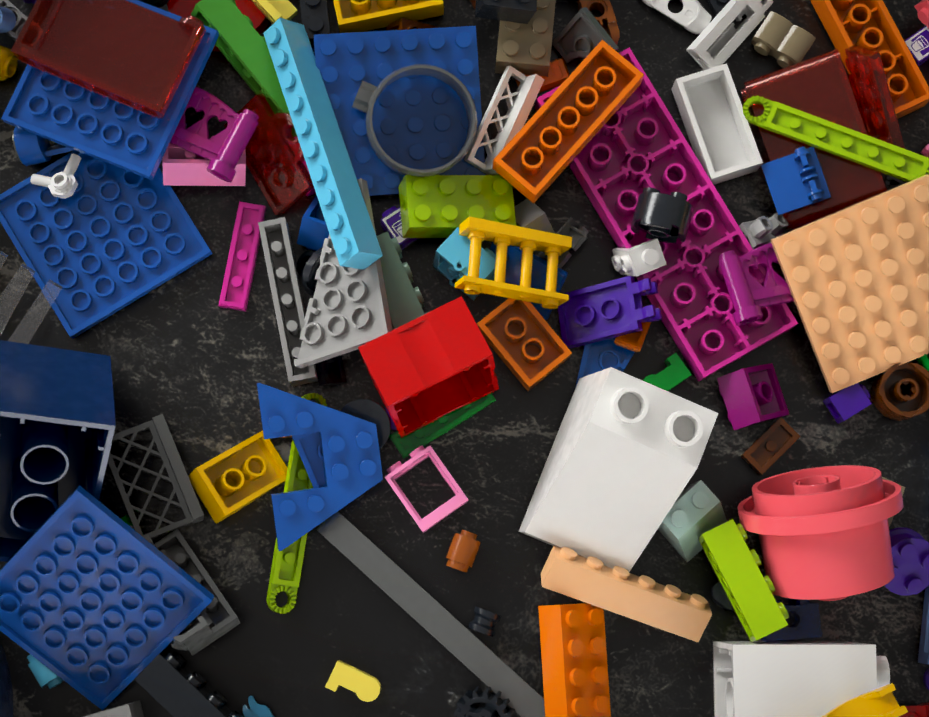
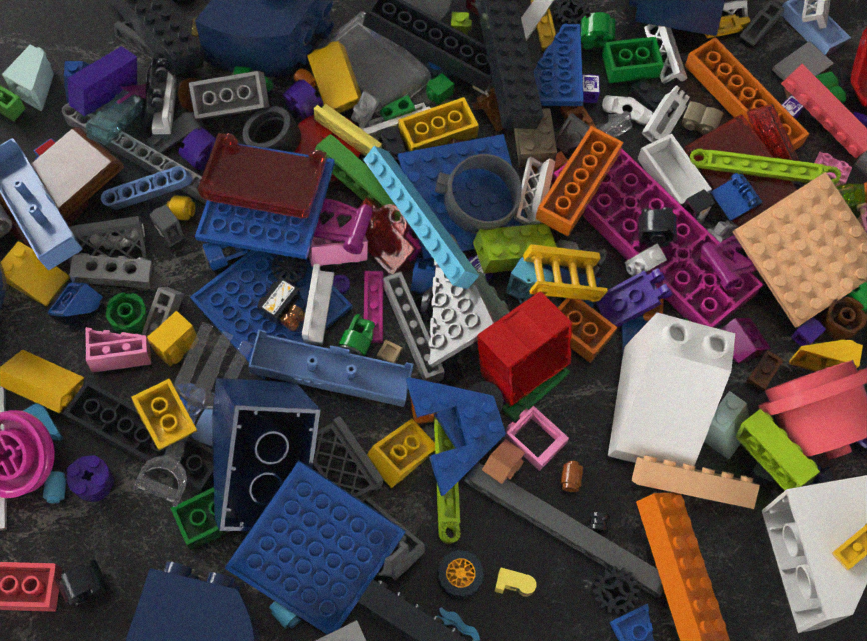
camera: 10 degrees left, 15 degrees down
(62, 183) = (241, 275): white piece -> none
(107, 231) = (278, 300): none -> brick
(123, 259) = (293, 317): none -> clear orange wheel
(132, 184) = (289, 268): none -> black wheel
(160, 246) = (317, 306): none -> white fence
(160, 342) = (330, 369): none -> medium blue piece
(200, 309) = (358, 342): none -> green piece
(203, 214) = (341, 283): none -> dark purple tile
(252, 328) = (389, 352): none -> tan tile
(284, 657) = (460, 574): none -> black wheel
(372, 517) = (504, 461): none -> nougat brick
(656, 30) = (617, 124): none -> clear tile
(737, 186) = (699, 205): none -> black brick
(869, 448) = (827, 354): none -> yellow slope

